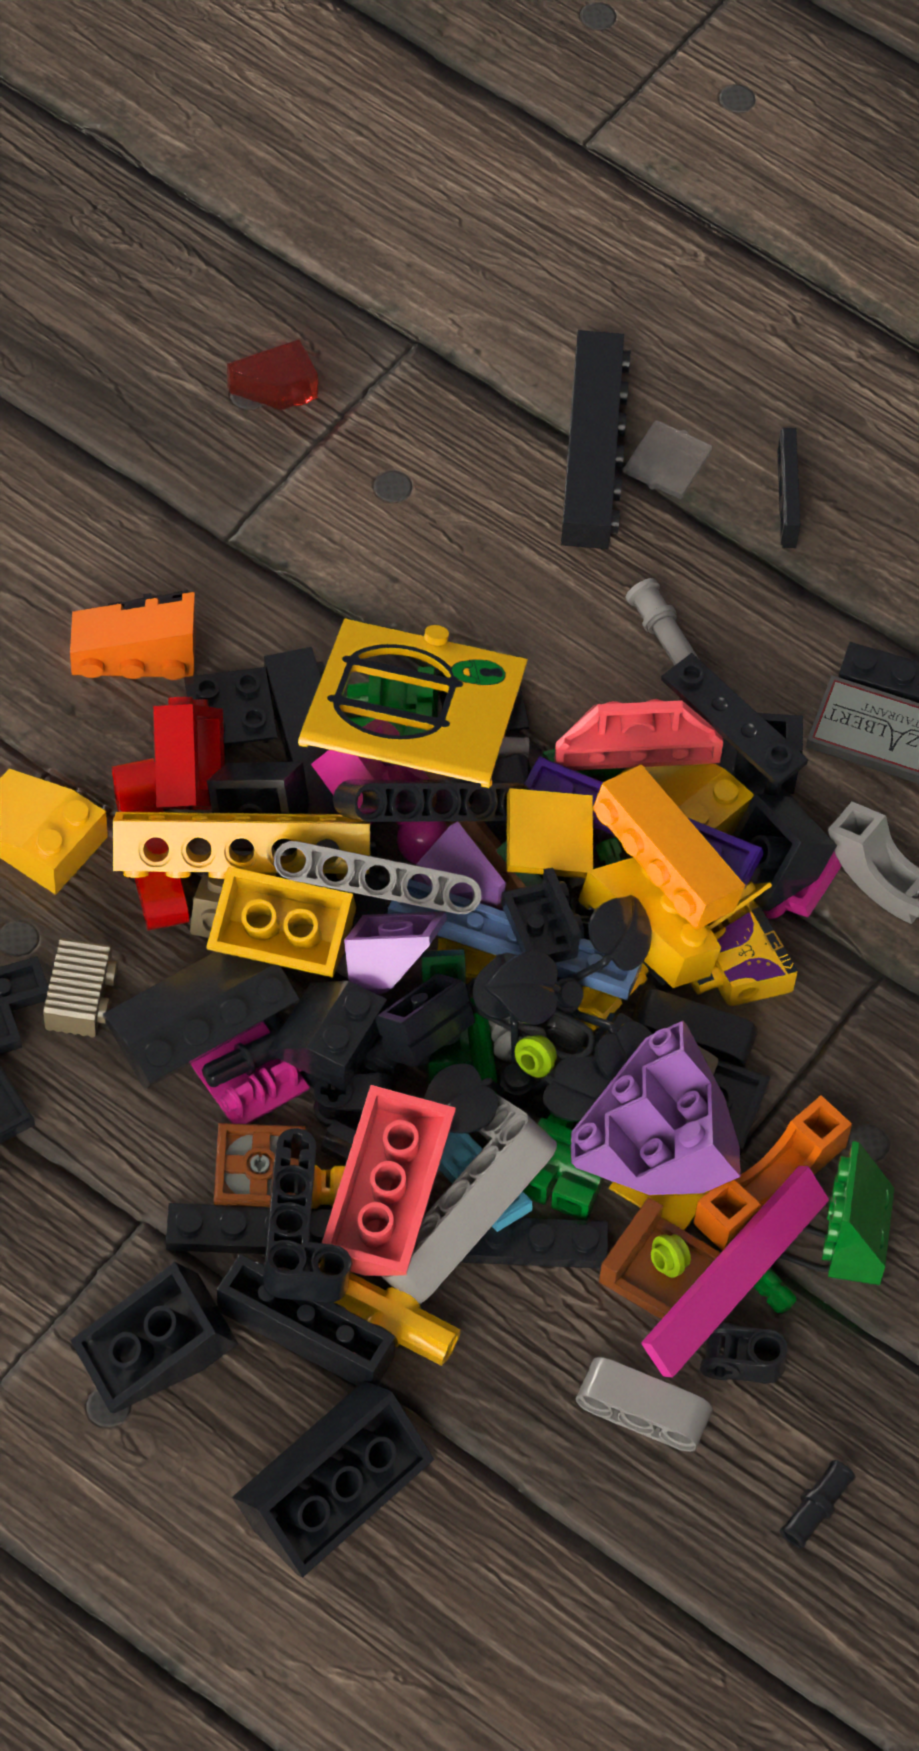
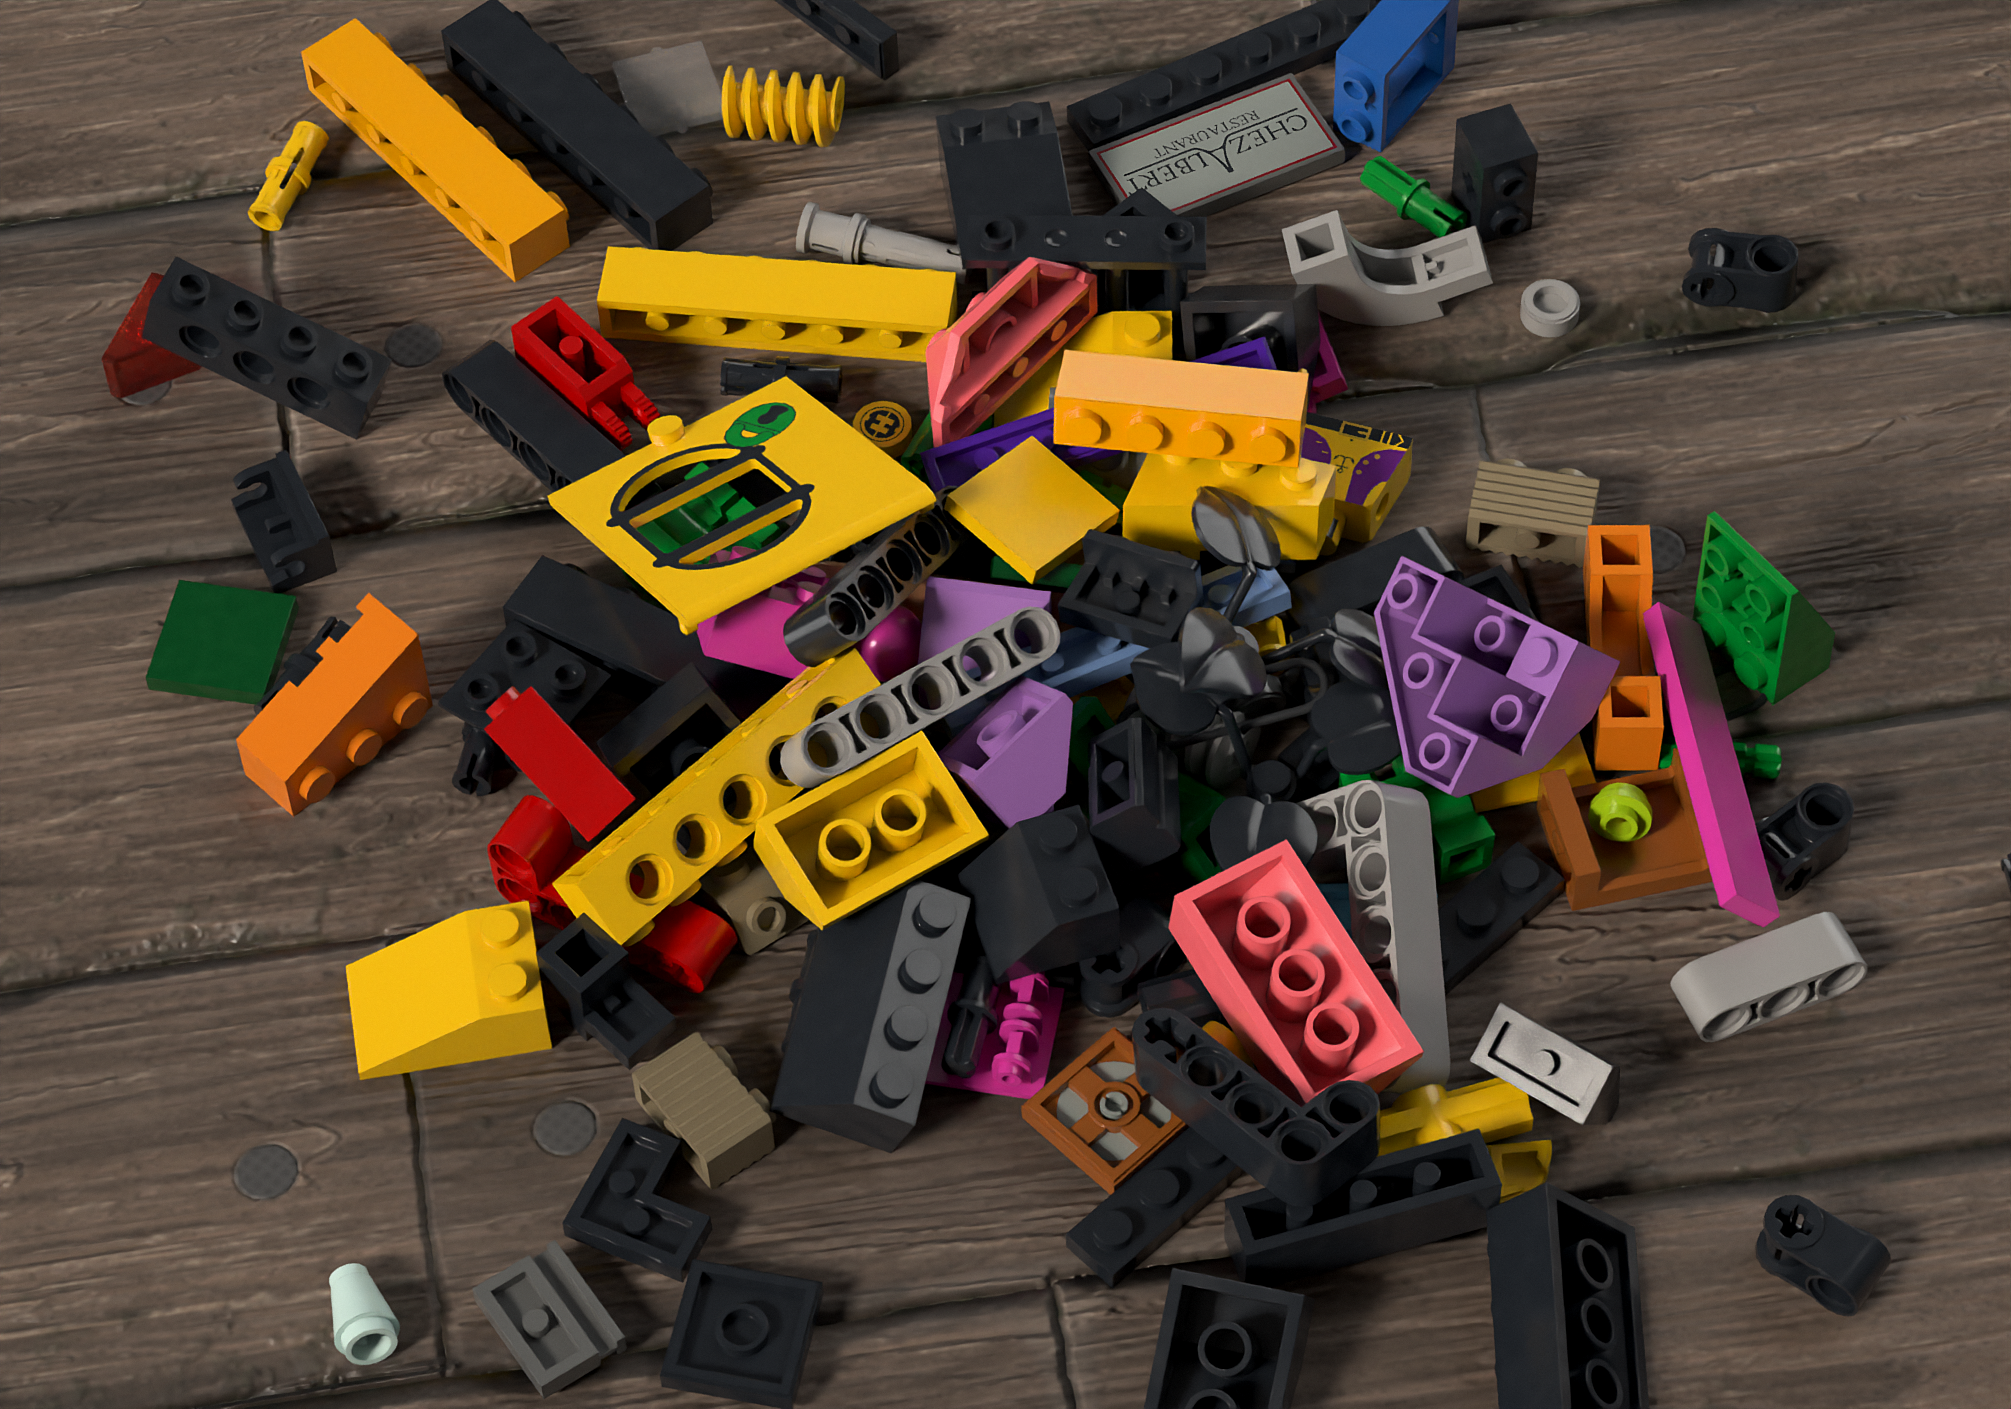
camera: 40 degrees left, 5 degrees down
(93, 888) = (595, 992): none -> black brick
(133, 558) = (222, 642): none -> dark green tile
(225, 524) = (283, 524): none -> black hinge
(303, 425) = (265, 347): none -> black brick
(394, 578) = (531, 420): none -> black beam
(412, 1379) = (1521, 1166): none -> yellow tile
(439, 569) = (582, 370): none -> red hinge
(448, 337) = (302, 149): none -> yellow pin
(468, 1342) = (1549, 1066): none -> tile
(498, 1563) = (1824, 1255): none -> black piece
(511, 392) = (437, 149): none -> light orange brick
(535, 1055) = (1276, 721): lime plate -> none
(539, 660) = (746, 376): none -> black pin
(554, 726) = (885, 426): none -> yellow tile
(576, 614) = (774, 303): none -> yellow brick
(701, 516) = (781, 107): none -> yellow piece
(765, 650) = (1001, 164): none -> black slope
(820, 1062) = (1531, 511): none -> dark tan brick

